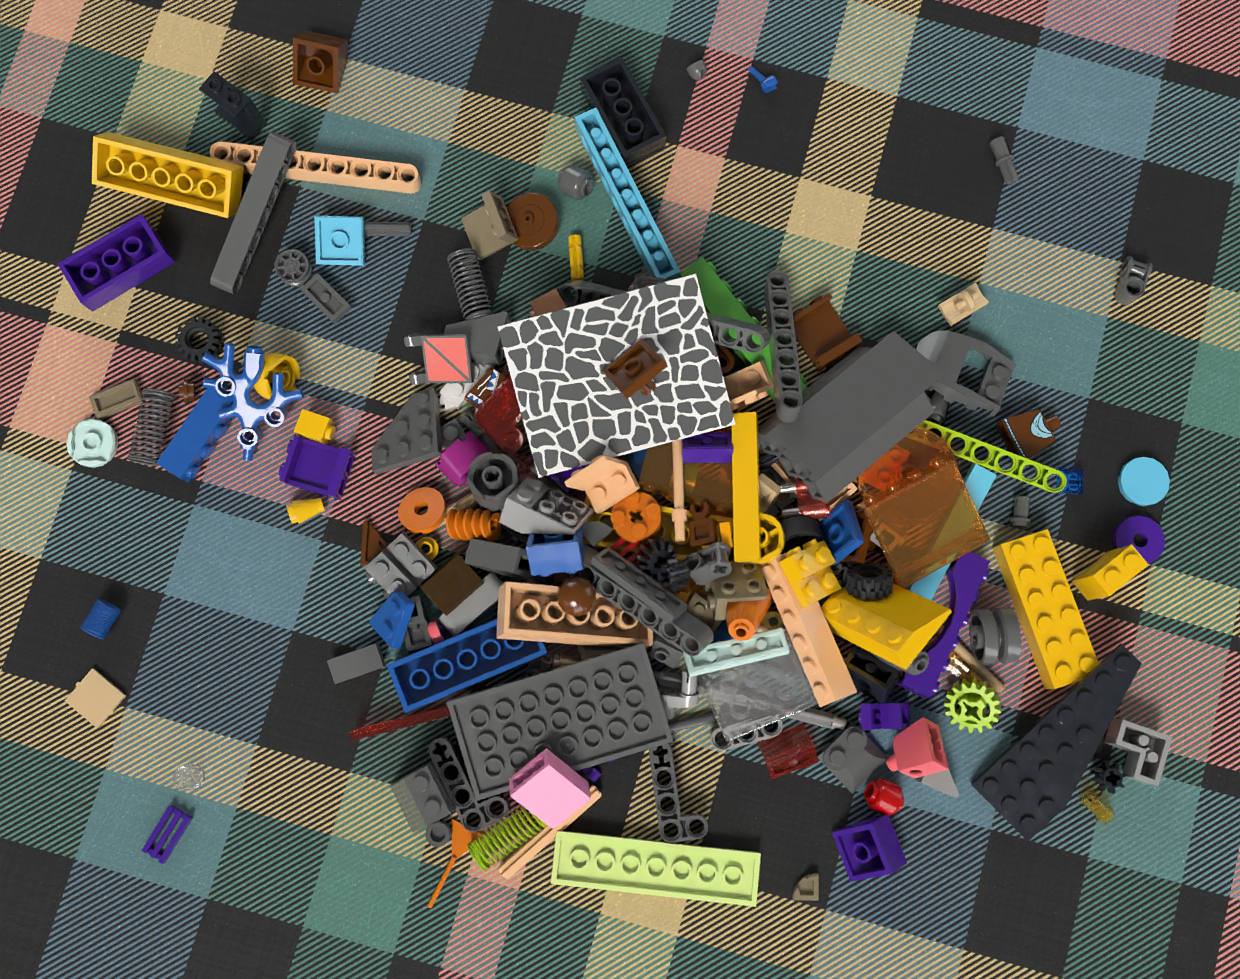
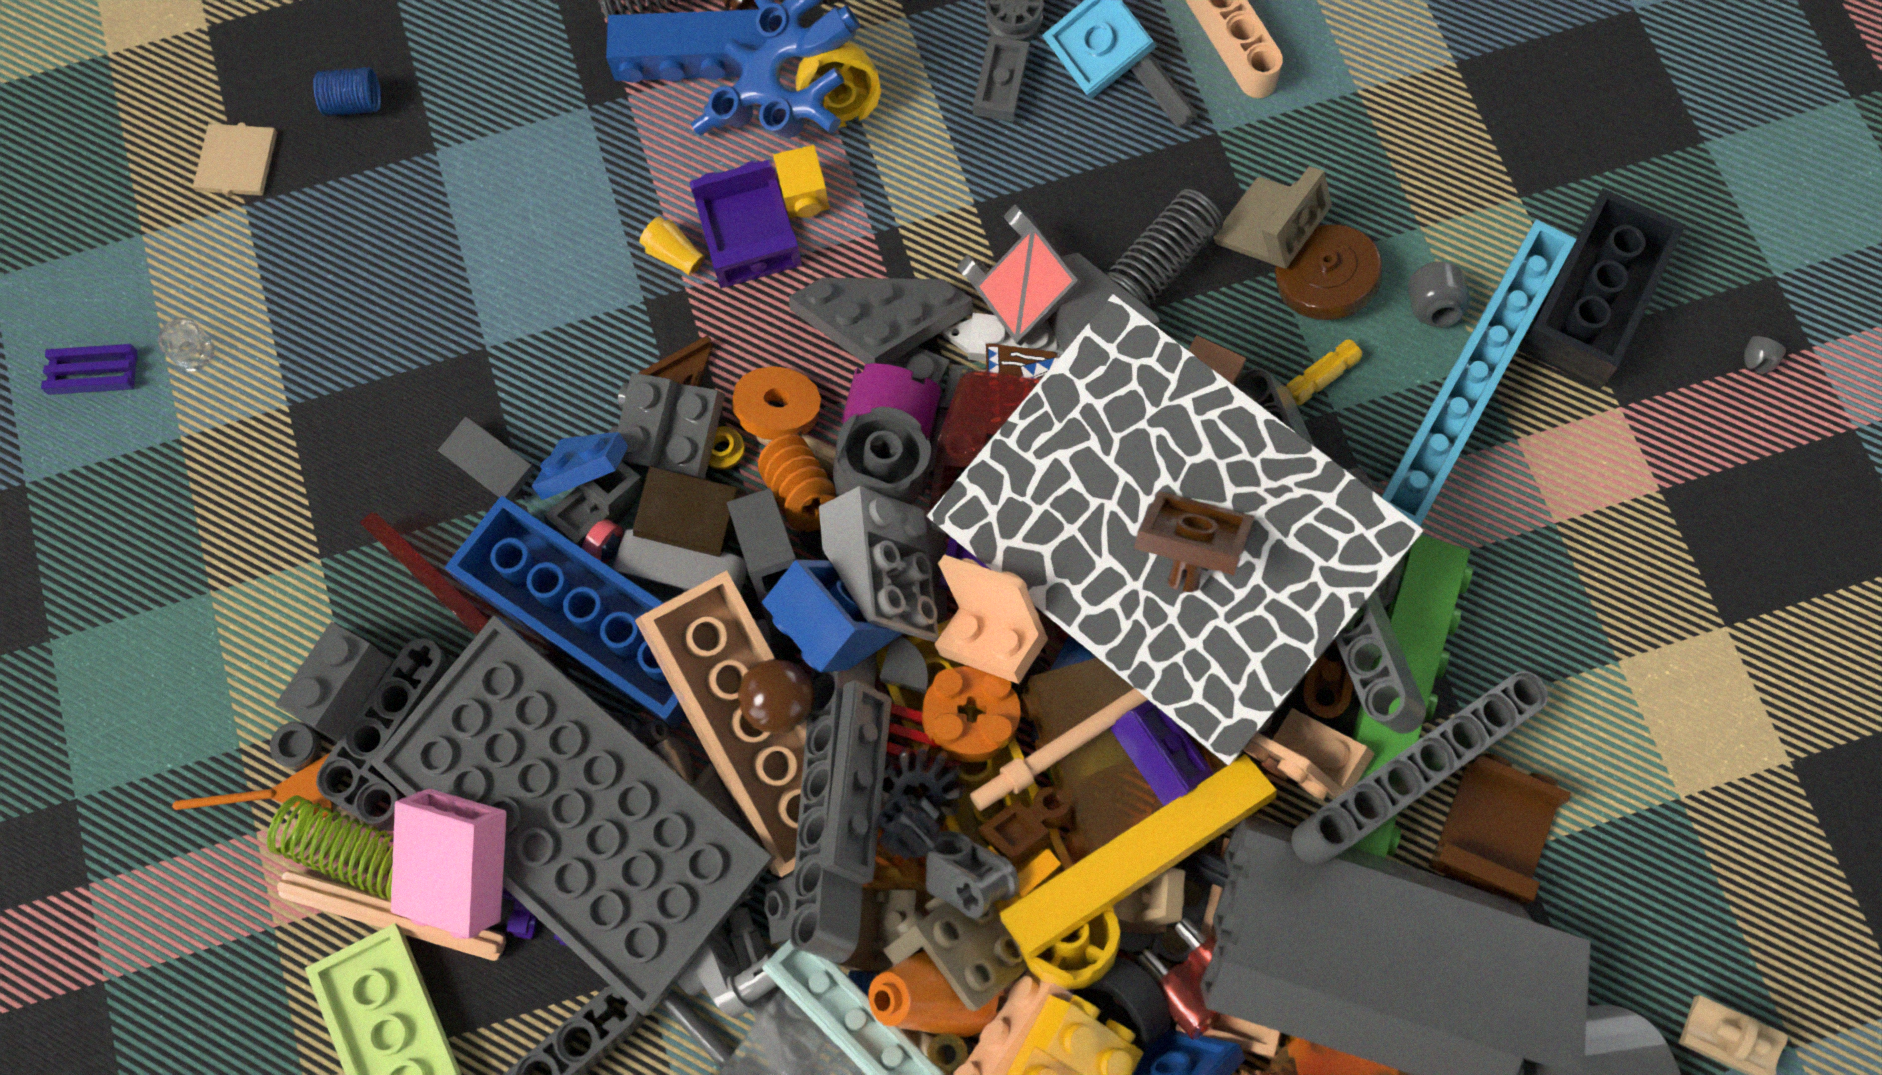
camera: 60 degrees right, 10 degrees down
(768, 83) = (1833, 474): blue hand -> none

